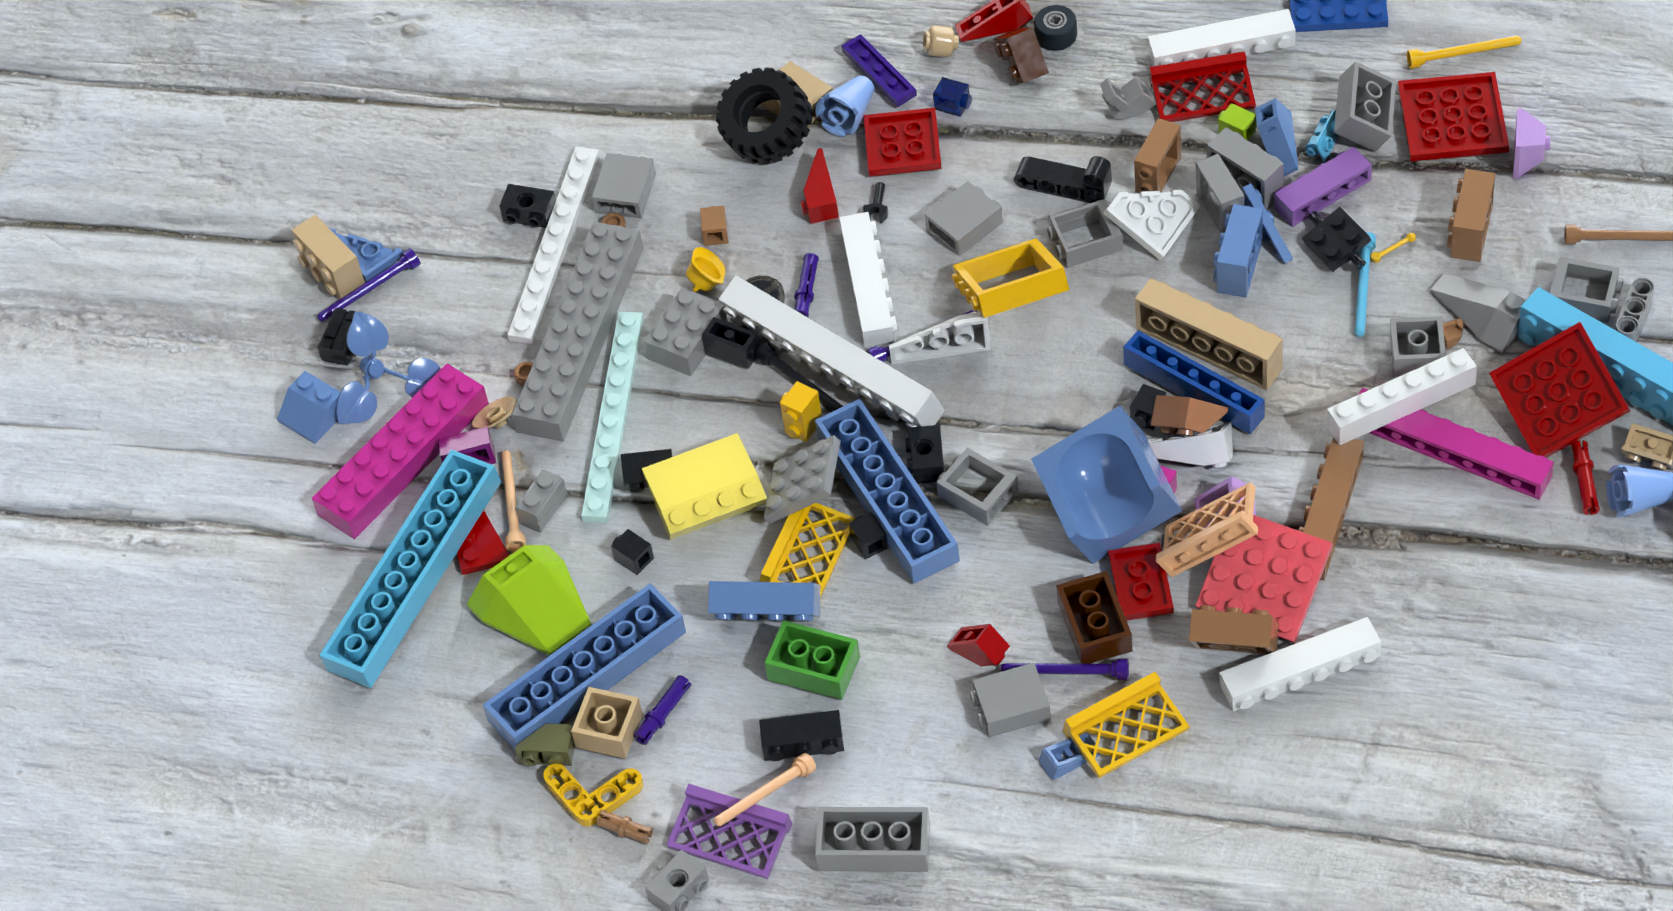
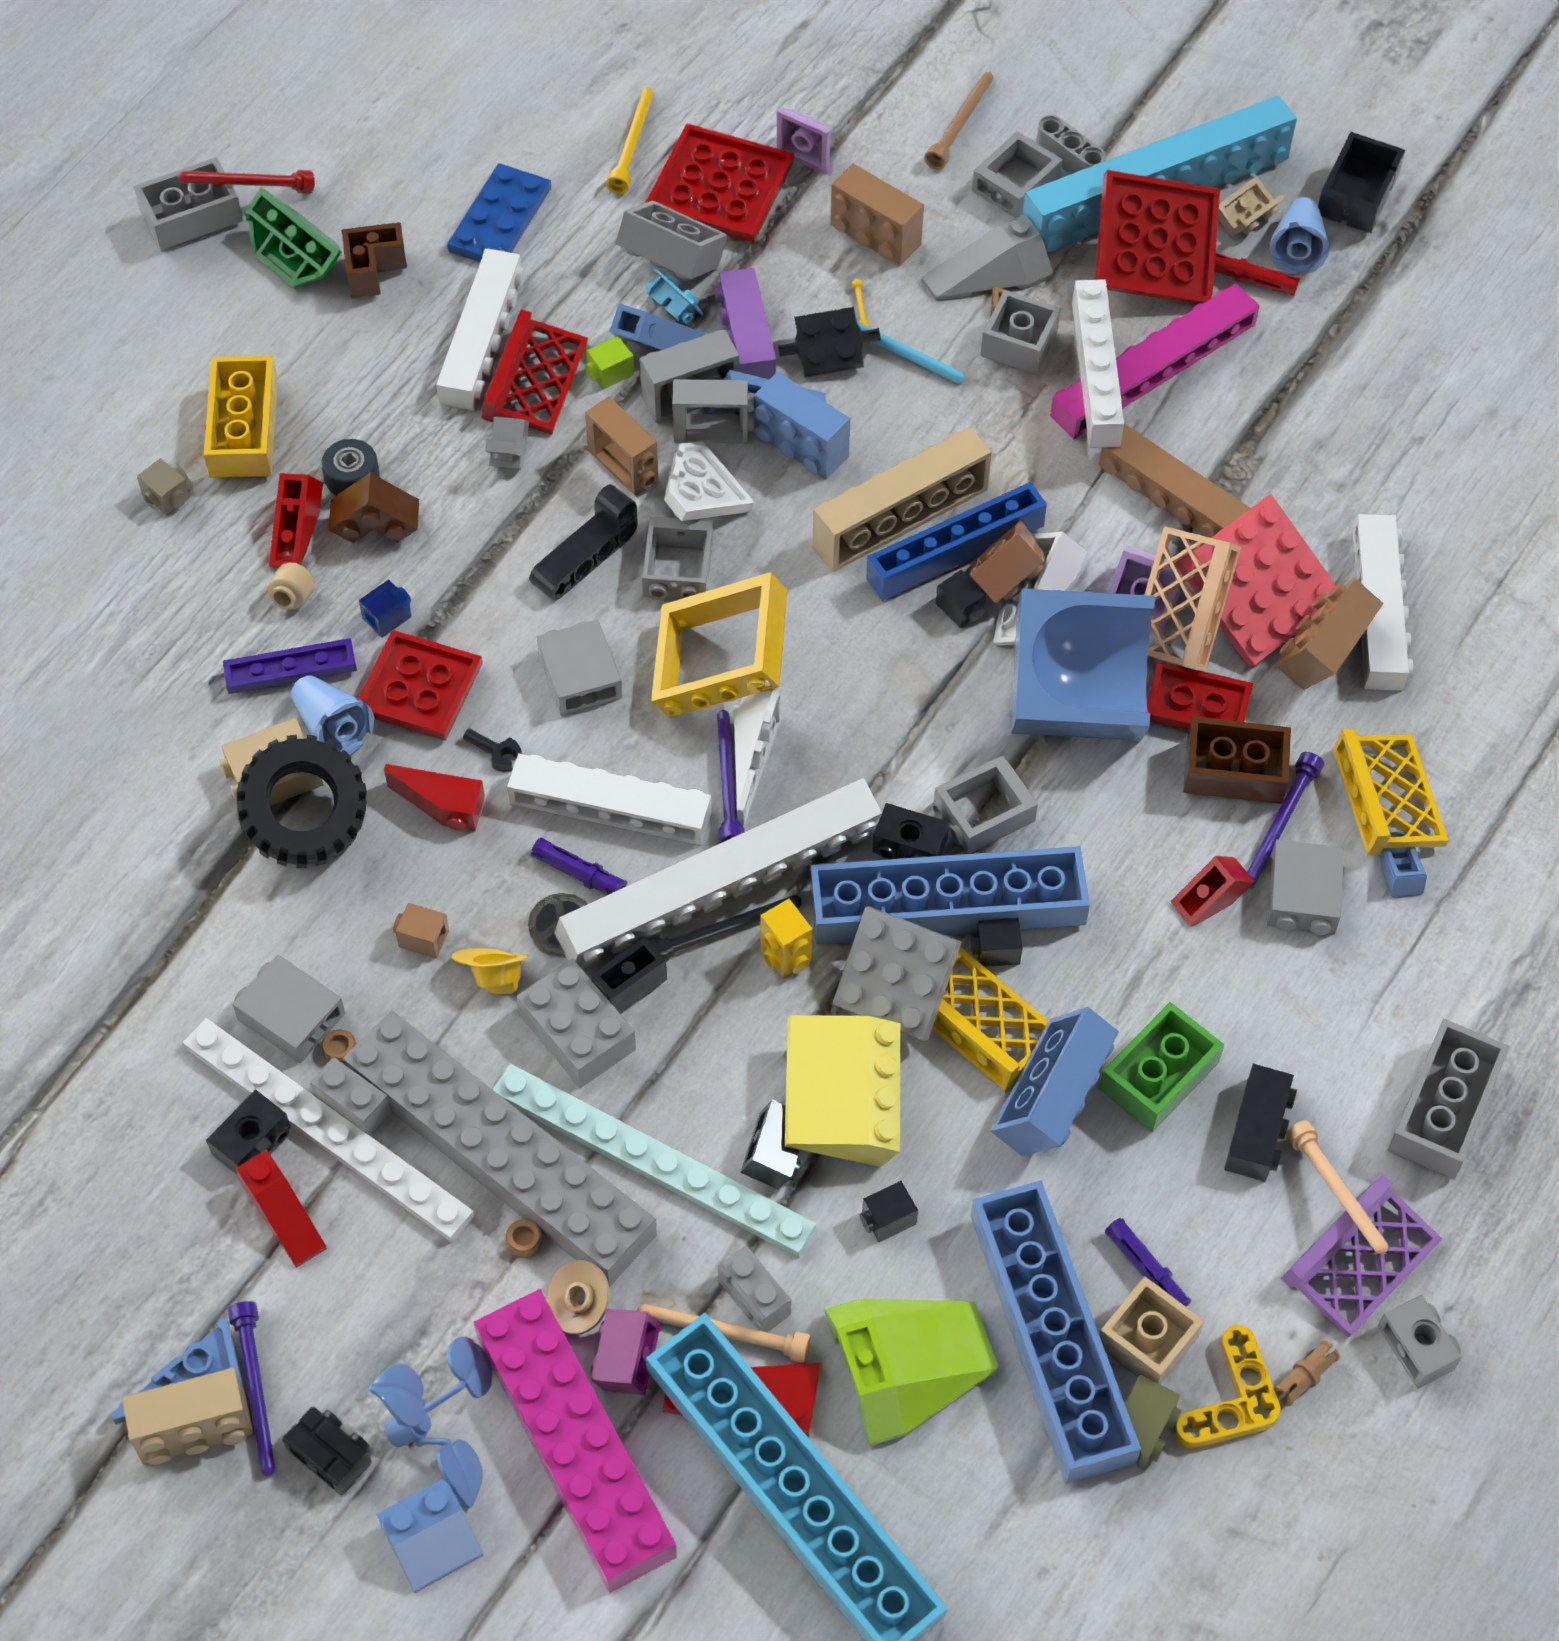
camera: 75 degrees left, 5 degrees up
(487, 242) = (280, 1208): none -> red slope
(572, 240) = (351, 1096): none -> light grey brick

